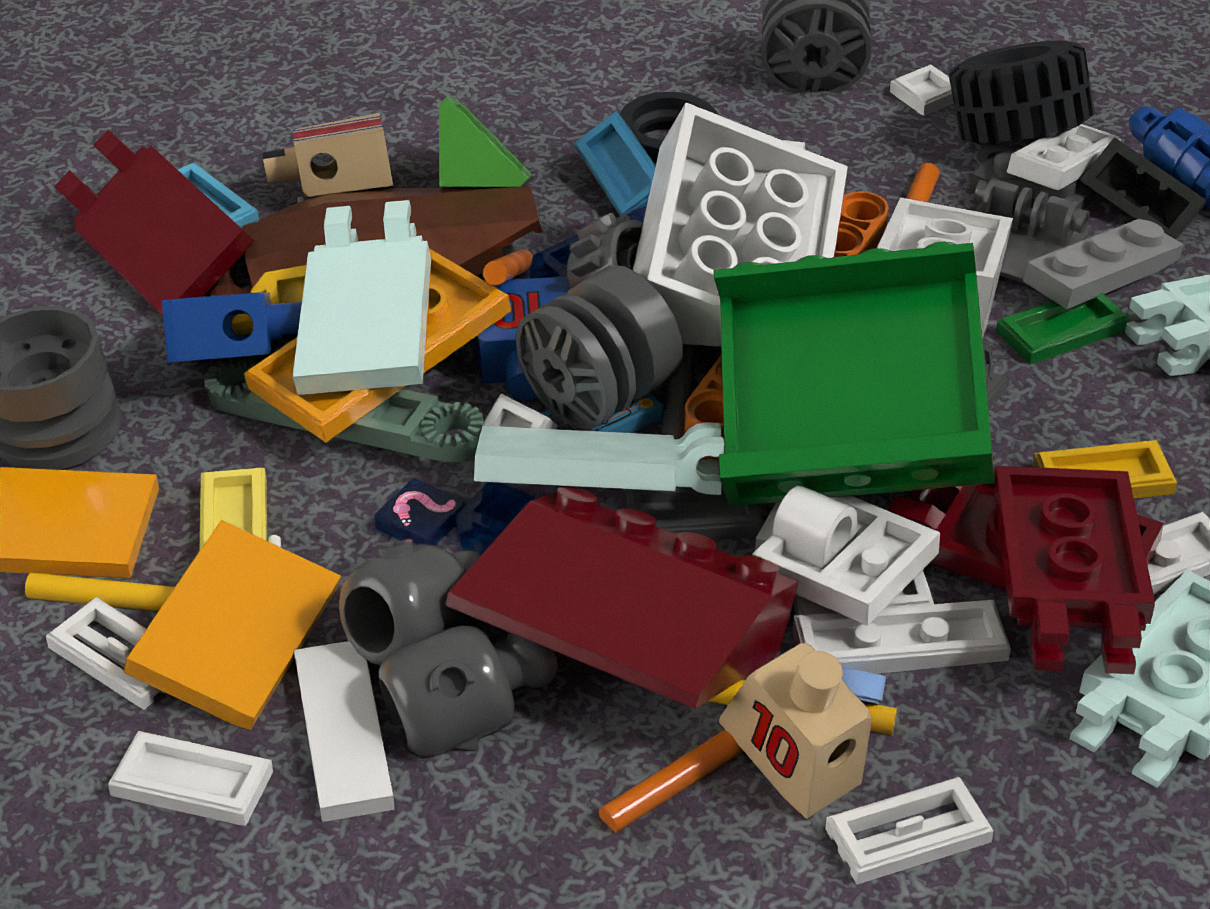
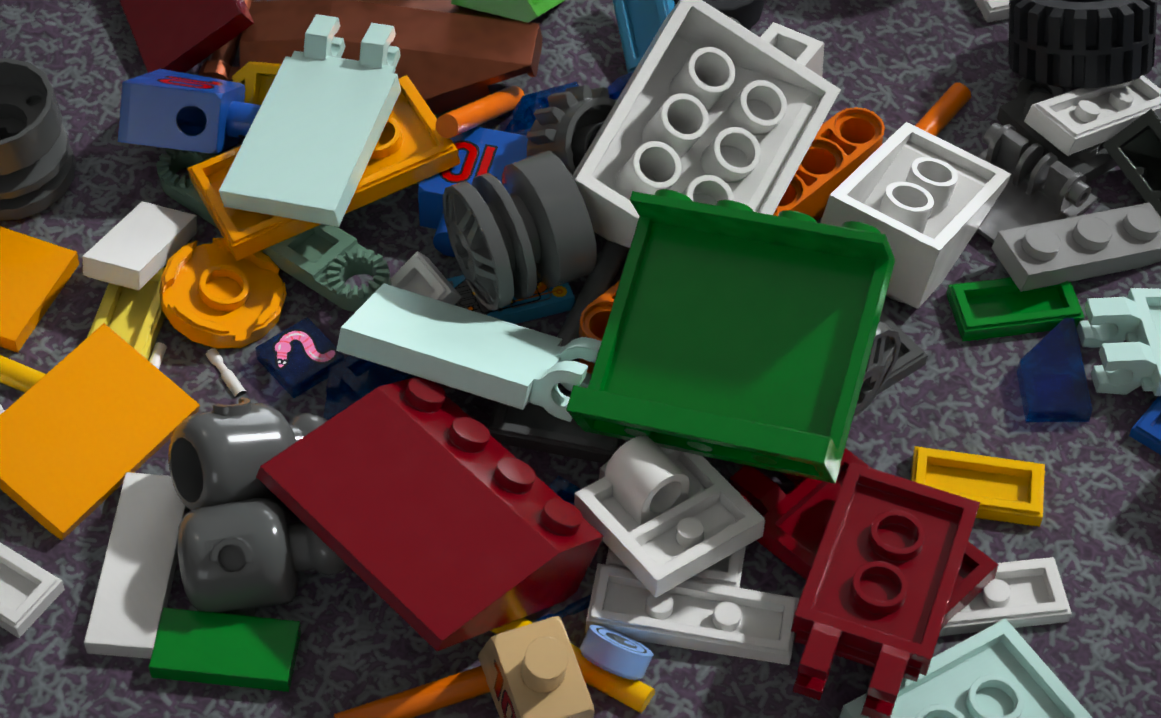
camera: 15 degrees right, 10 degrees up
(220, 453) = (139, 245): none -> white tile
(319, 480) = (220, 298): none -> light orange tile
(352, 548) = (226, 374): none -> white piece
(464, 780) = (225, 649): none -> green tile
(1129, 374) = (1055, 379): none -> clear blue tile

